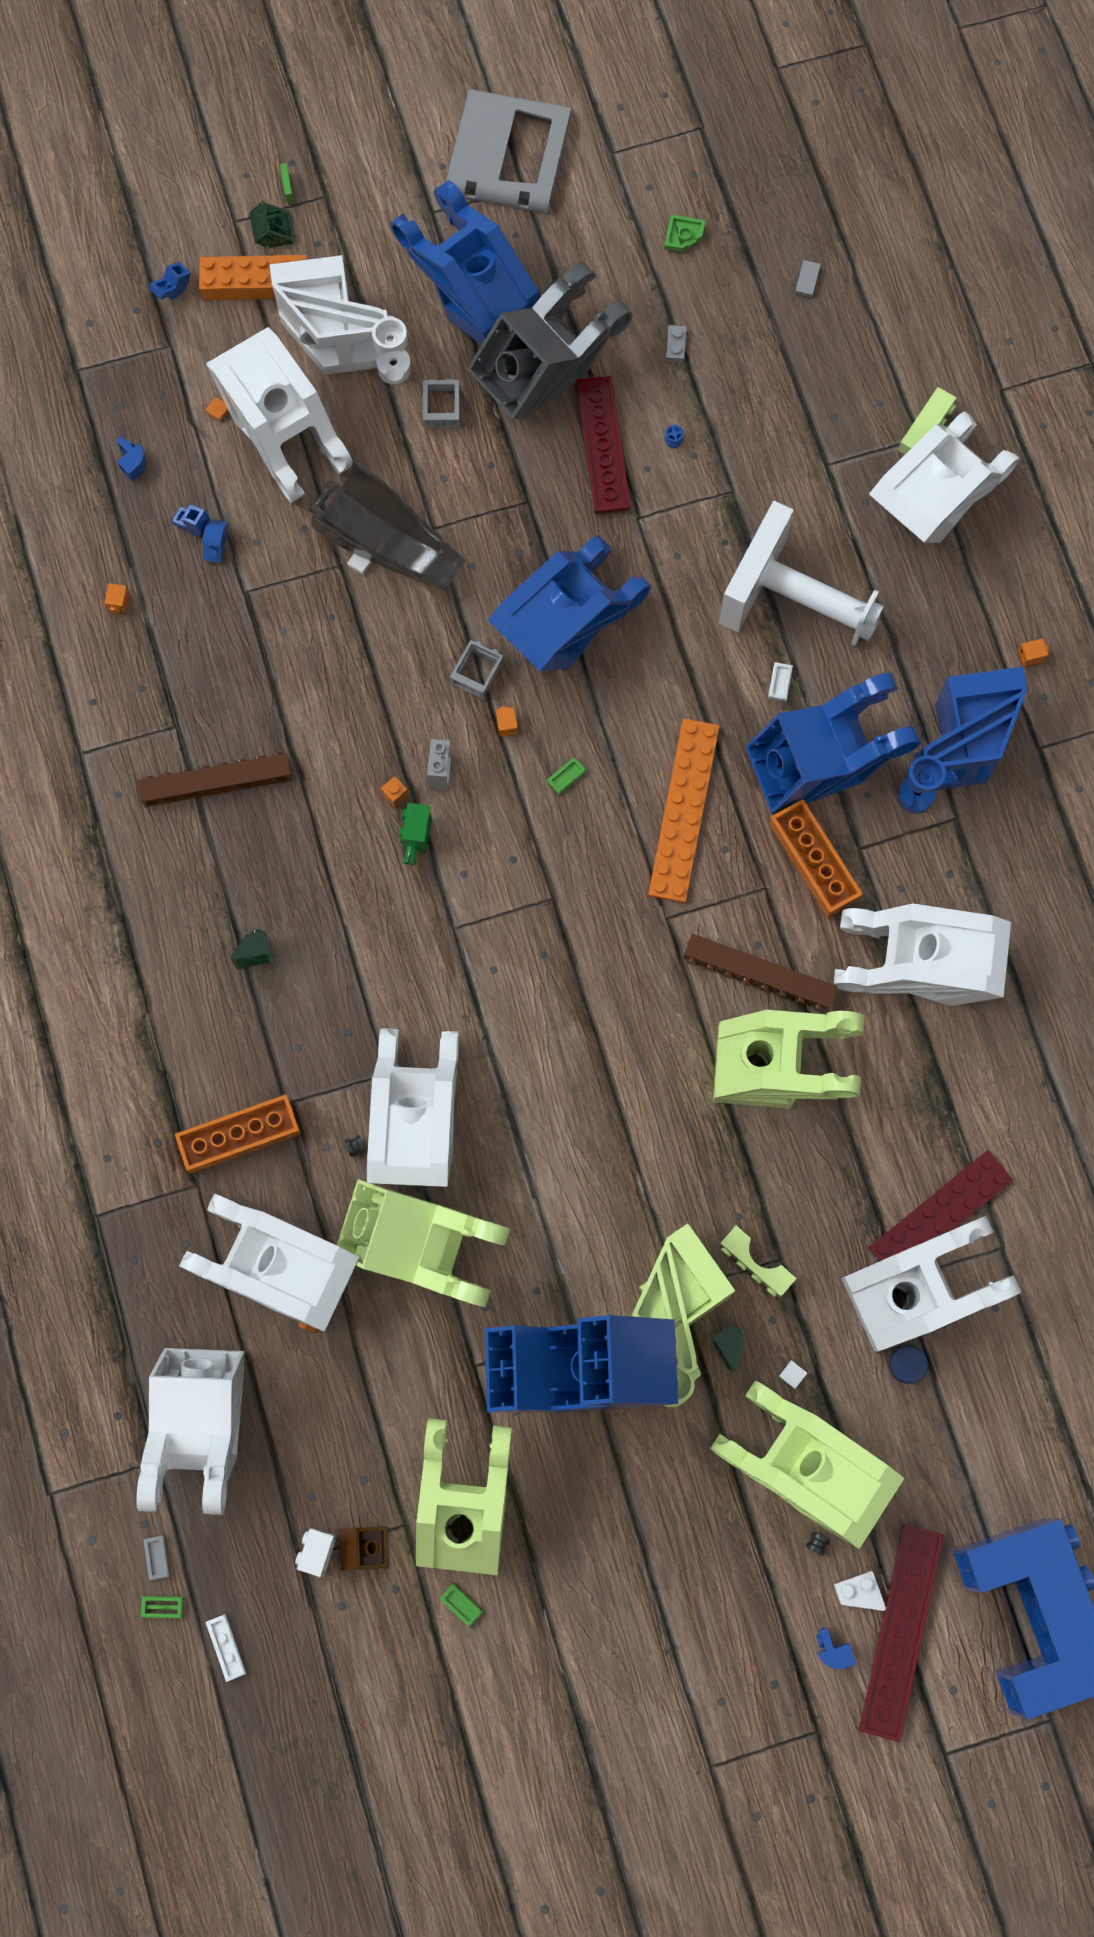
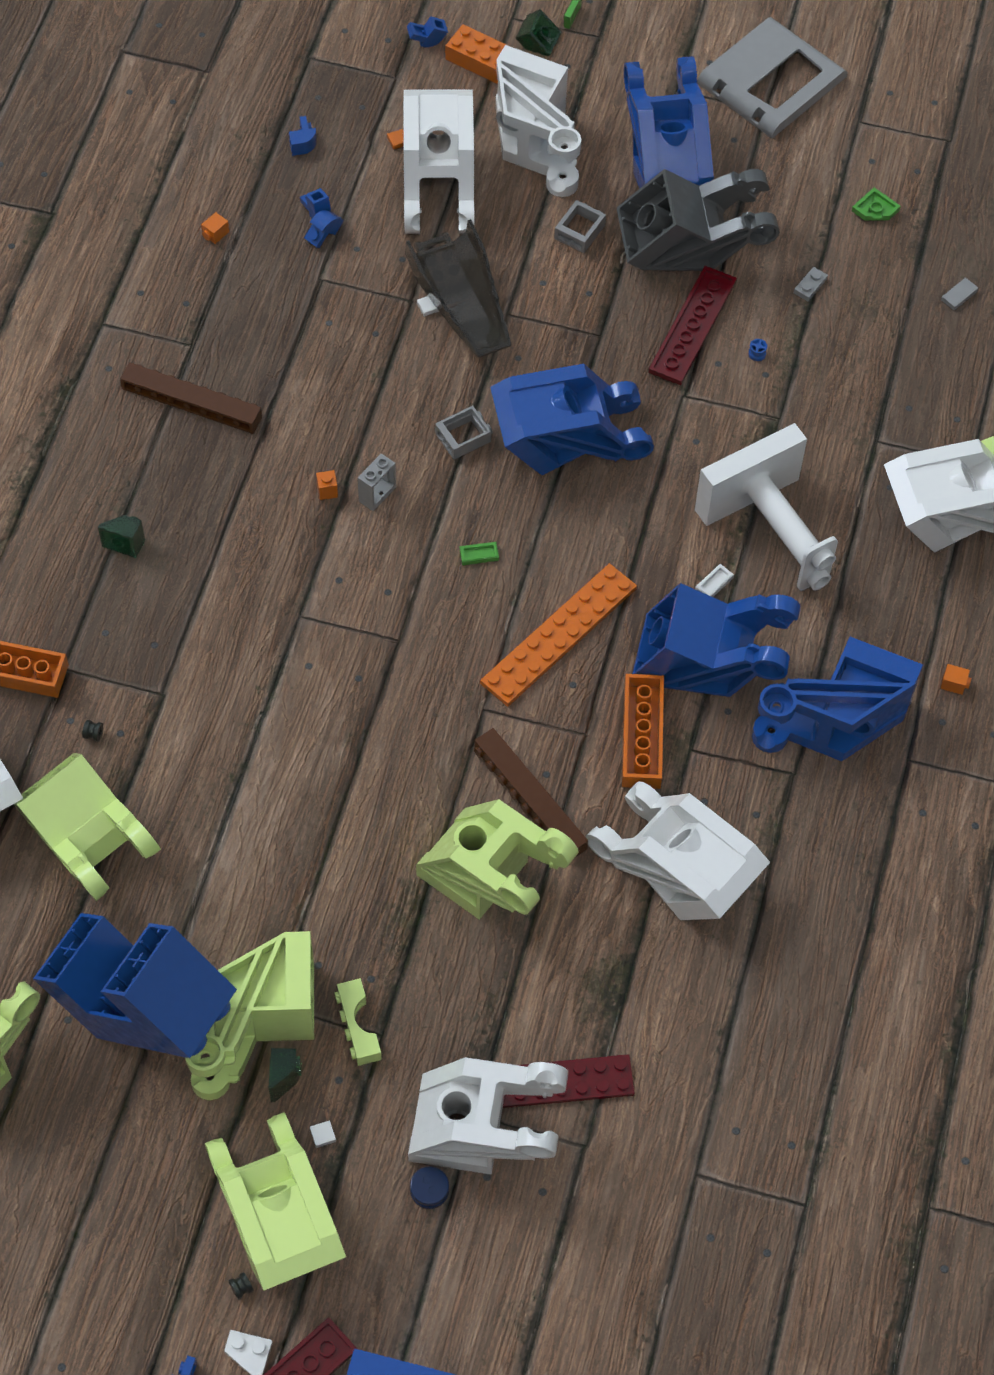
camera: 30 degrees right, 15 degrees down
(412, 1116) = (153, 722): white piece -> none
(415, 831) = (321, 520): green brick -> none
(506, 721) = (458, 484): orange brick -> none

